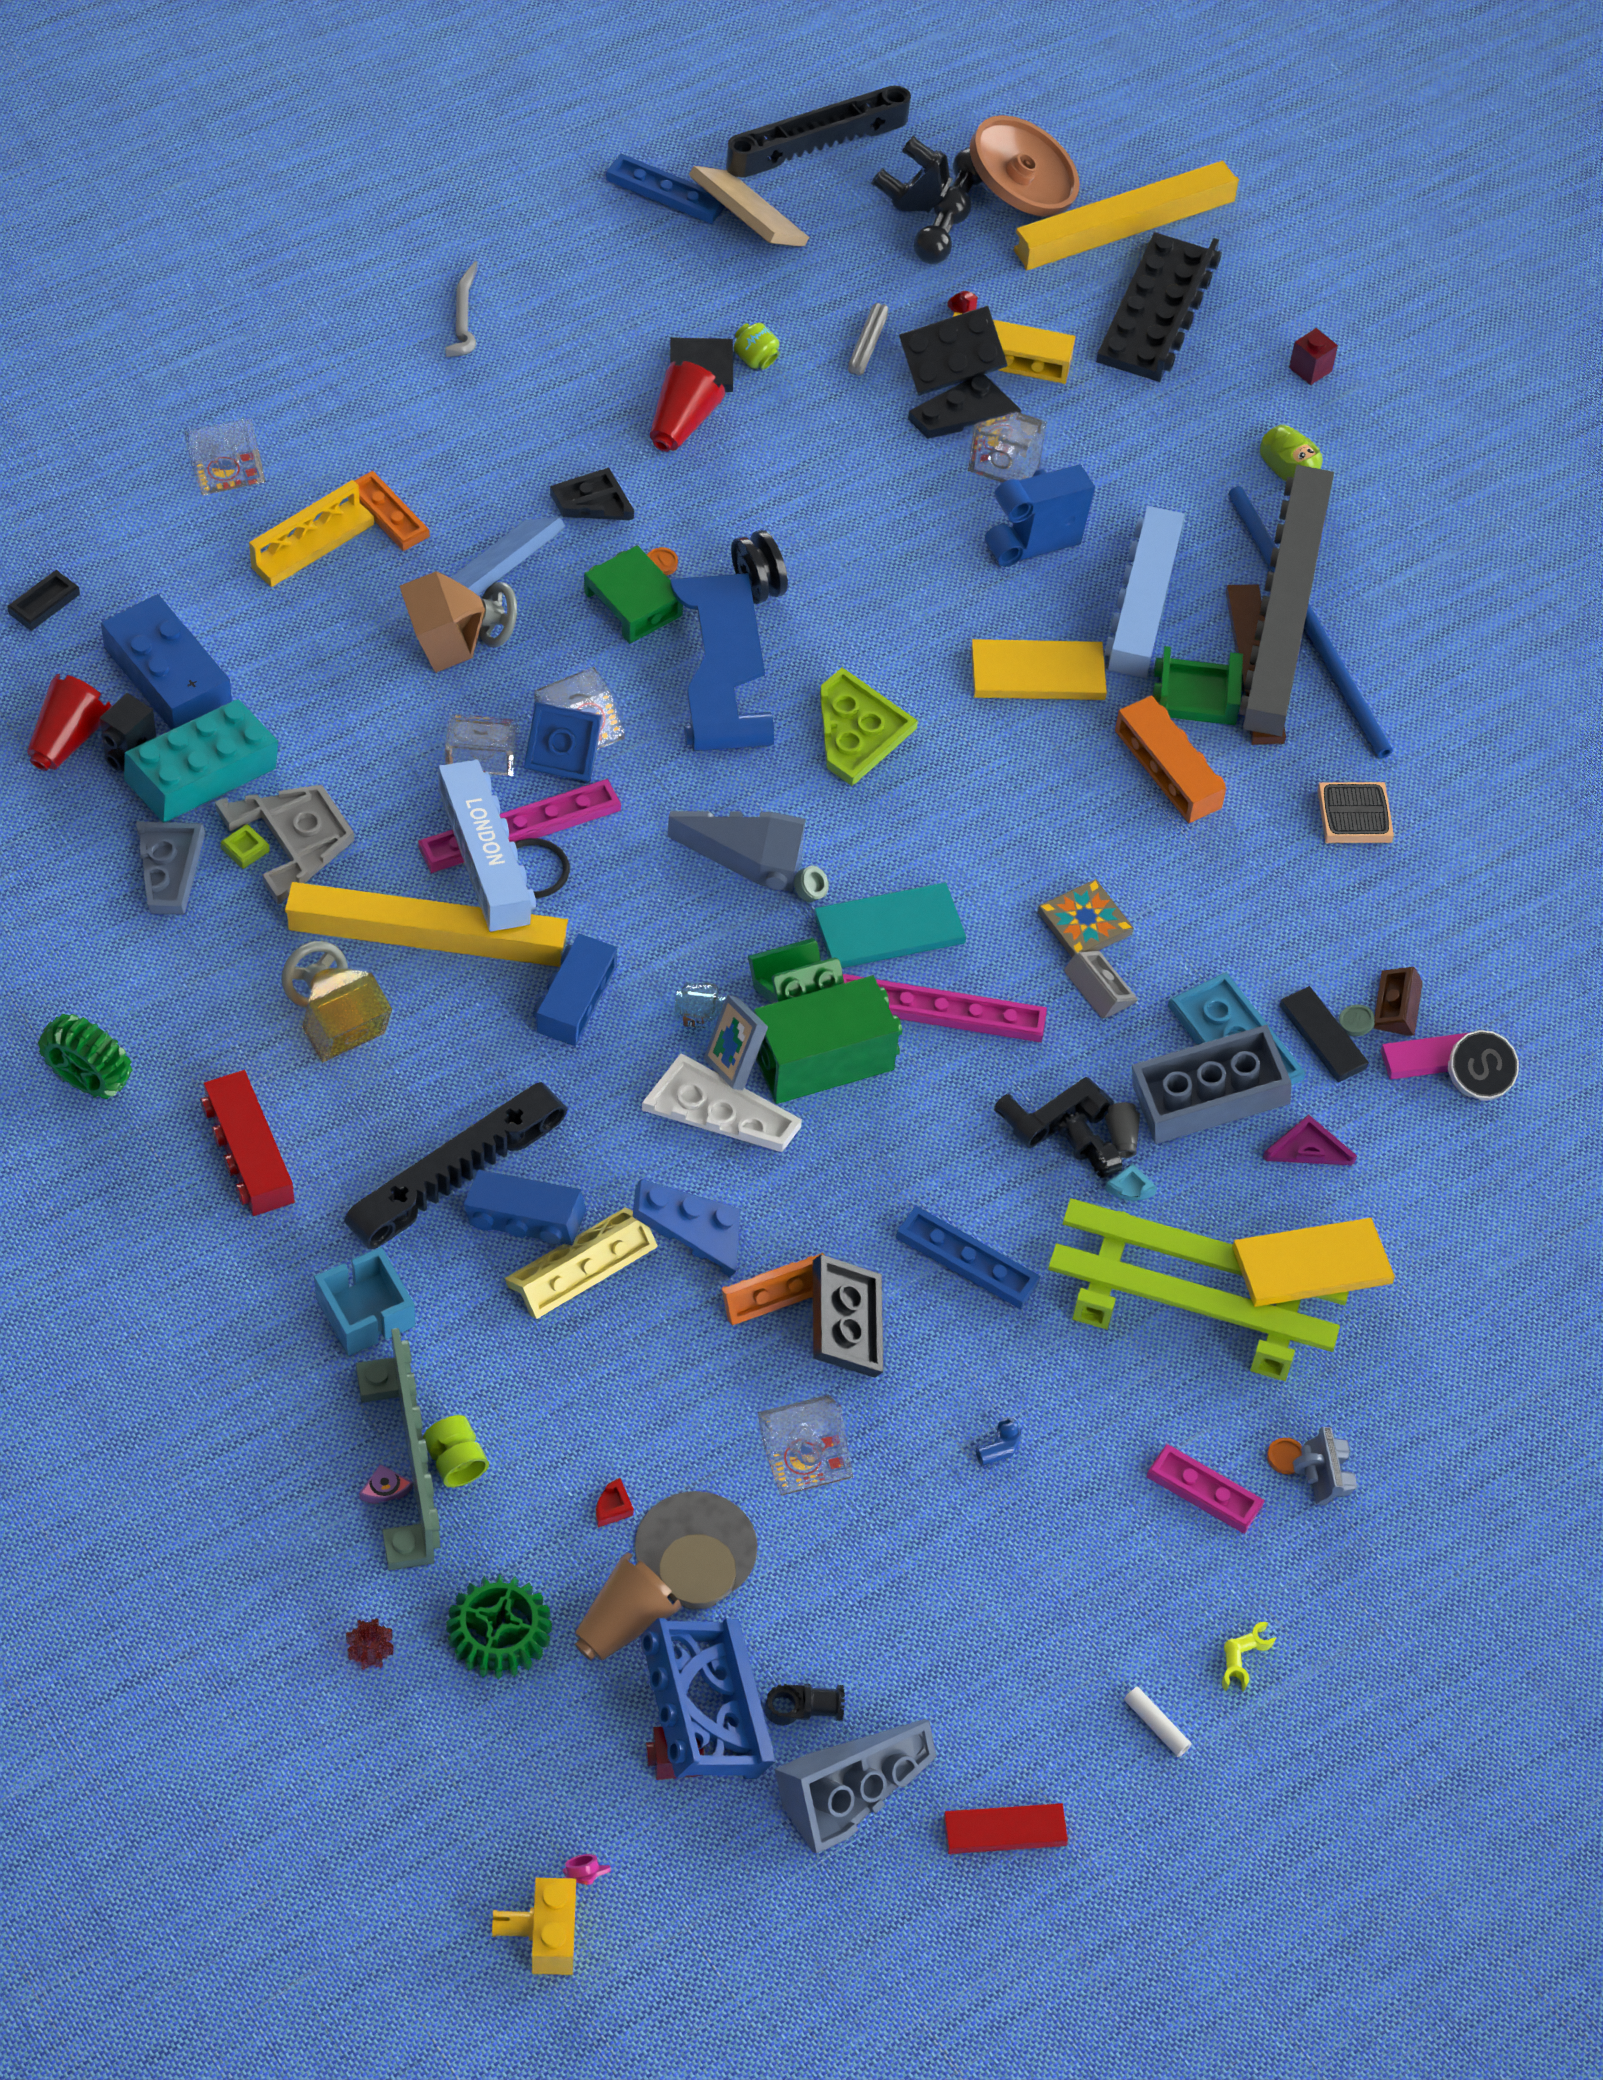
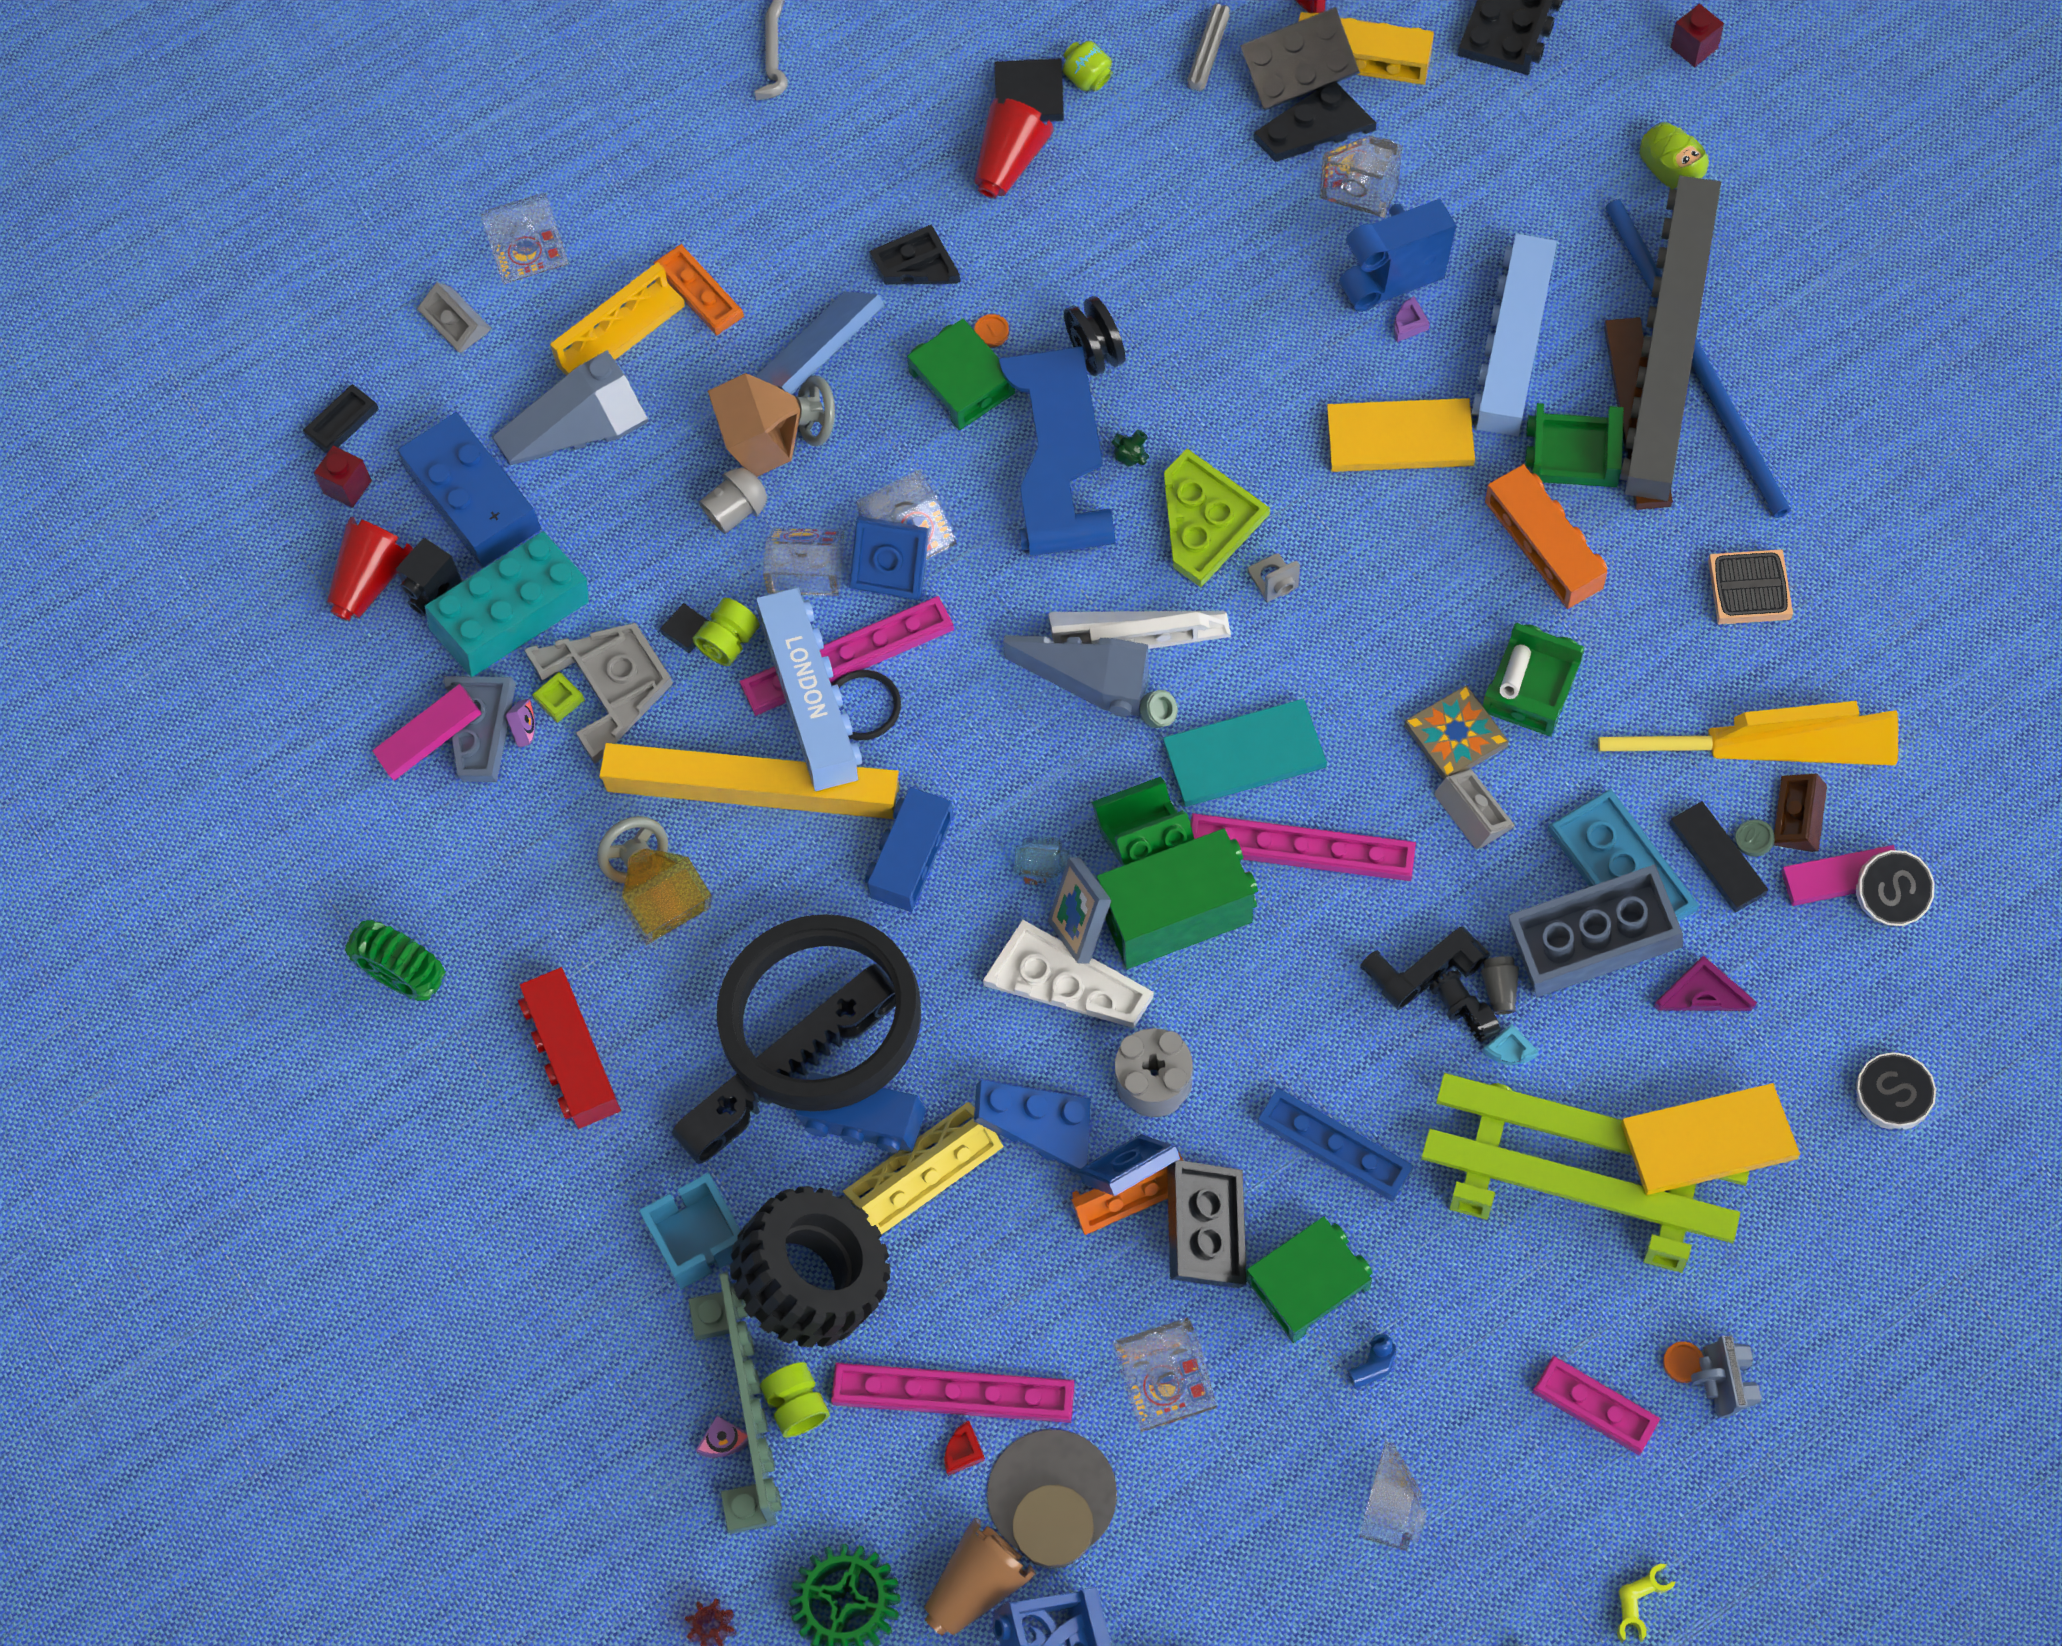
camera: 10 degrees right, 10 degrees up
(45, 646) = (342, 476): none -> dark red brick
(119, 866) = (426, 732): none -> dark pink tile
(153, 520) = (453, 317): none -> light grey slope
(210, 865) = (522, 722): none -> medium lavender tile
(273, 602) = (579, 409): none -> sand blue wedge
(368, 794) = (682, 627): none -> black tile
(407, 796) = (729, 627): none -> lime wheel
(418, 685) = (734, 499): none -> light grey piece
(458, 1353) = (781, 1296): none -> black tyre
(494, 1182) = (788, 939): none -> black tyre
(604, 1455) = (953, 1392): none -> dark pink tile
(776, 1260) = (1128, 1164): none -> blue tile
(789, 665) = (1130, 448): none -> dark green plant
(800, 1186) = (1157, 1051): none -> light grey brick
(820, 817) = (1144, 627): none -> white wedge
(926, 780) = (1277, 582): none -> light grey bracket
(940, 1366) = (1309, 1277): none -> green panel
(1018, 1557) = (1394, 1503): none -> clear slope
(1049, 576) = (1410, 320): none -> medium lavender tile
(1141, 866) = (1515, 671): none -> white piece
(1157, 877) = (1545, 682): none -> green panel
(1267, 937) = (1655, 743): none -> light yellow bar
(1408, 936) = (1810, 735): none -> yellow wedge
(1481, 1236) = (1895, 1091): none -> black tile

